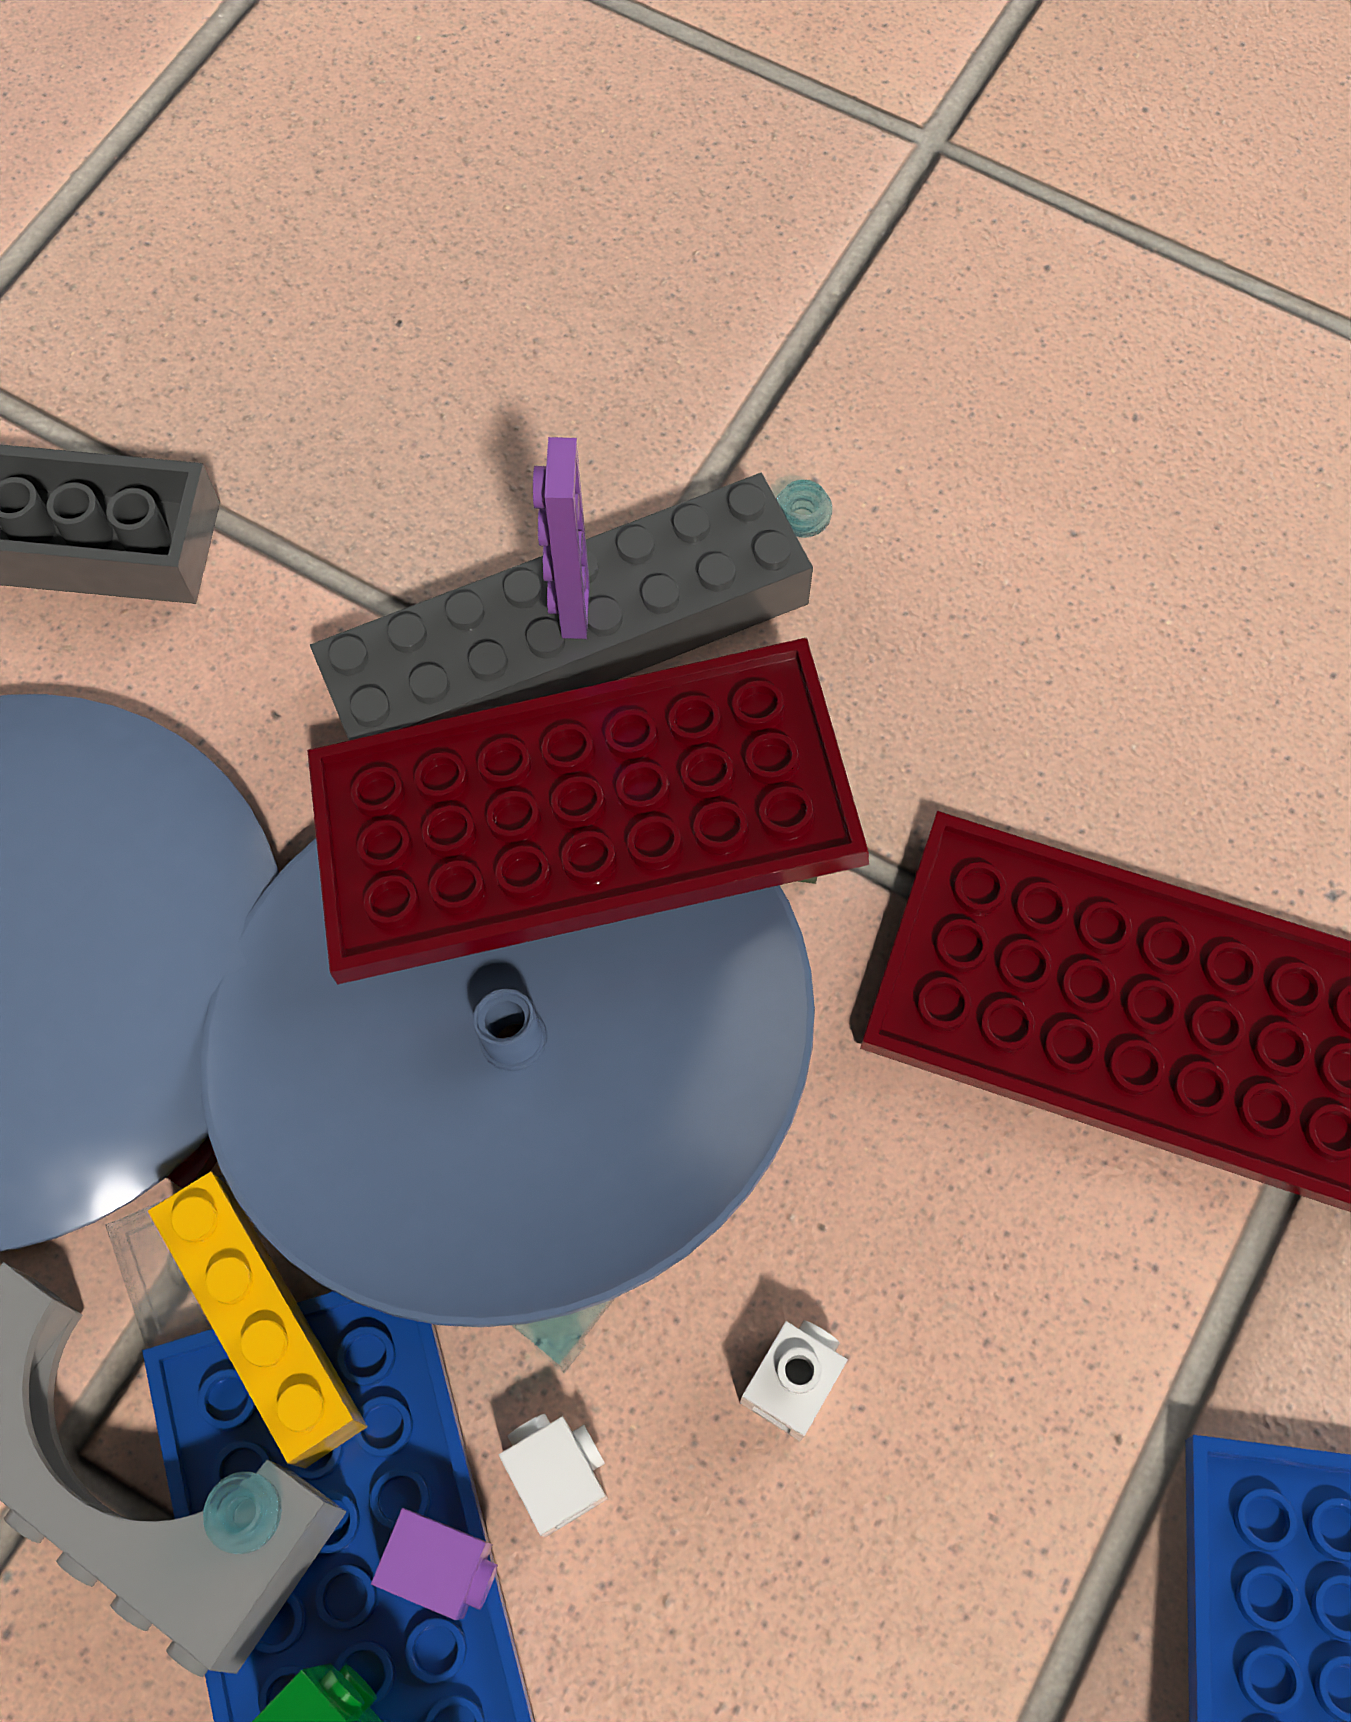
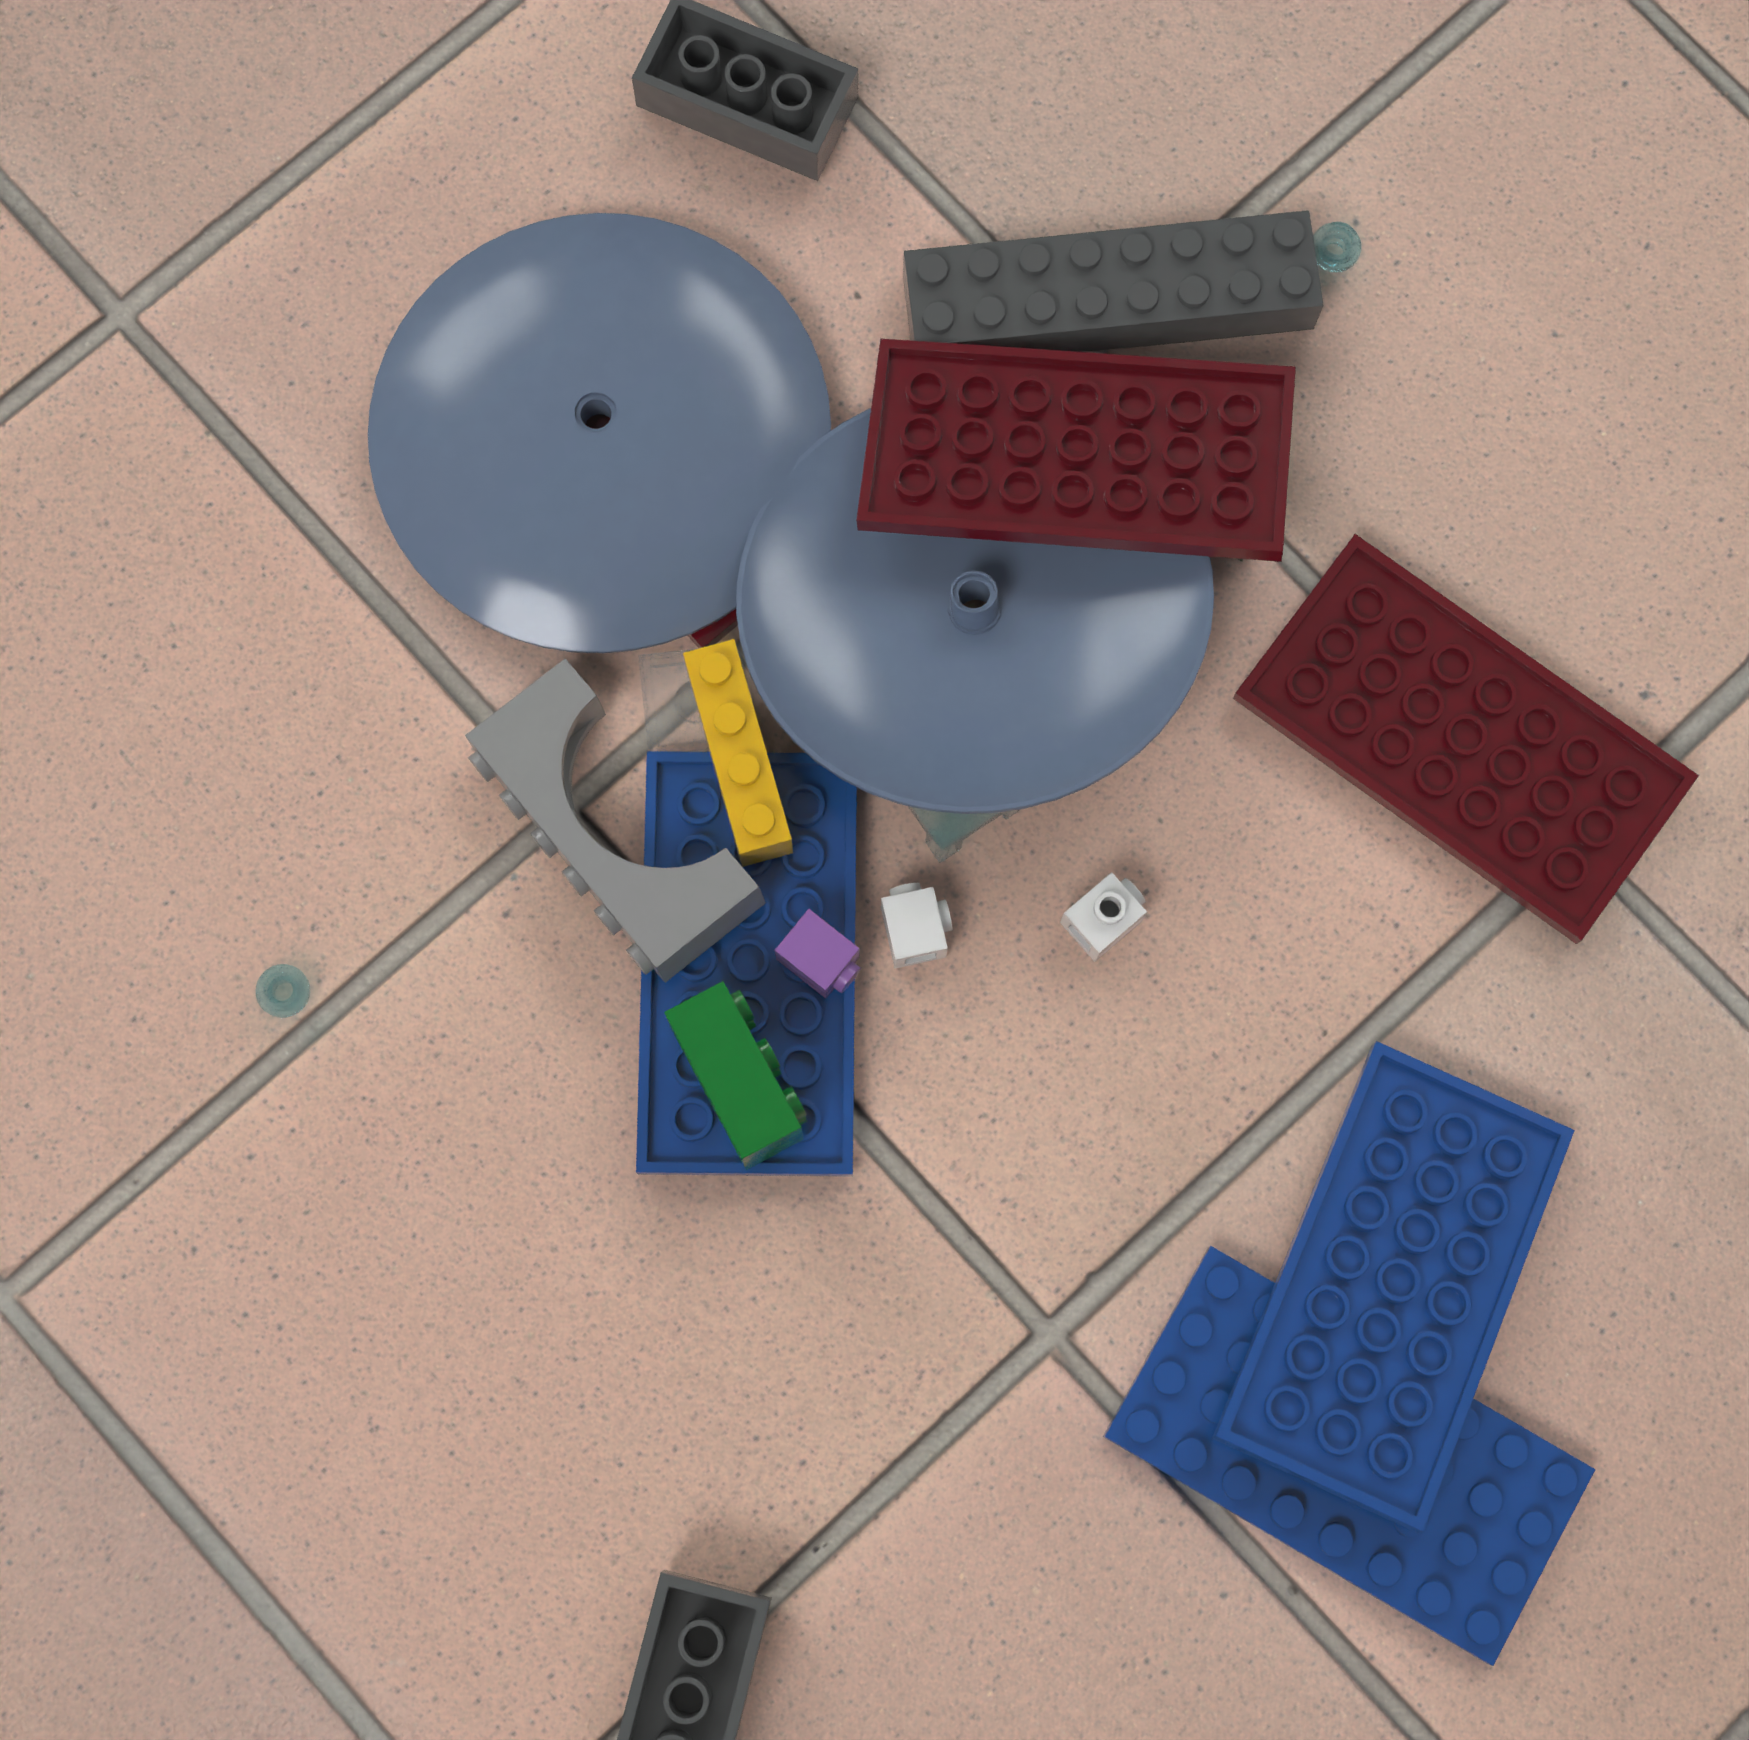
camera: 15 degrees right, 10 degrees up
(221, 1509) = (700, 860): clear light blue plate -> none
(563, 536) = (1129, 238): medium lavender plate -> none

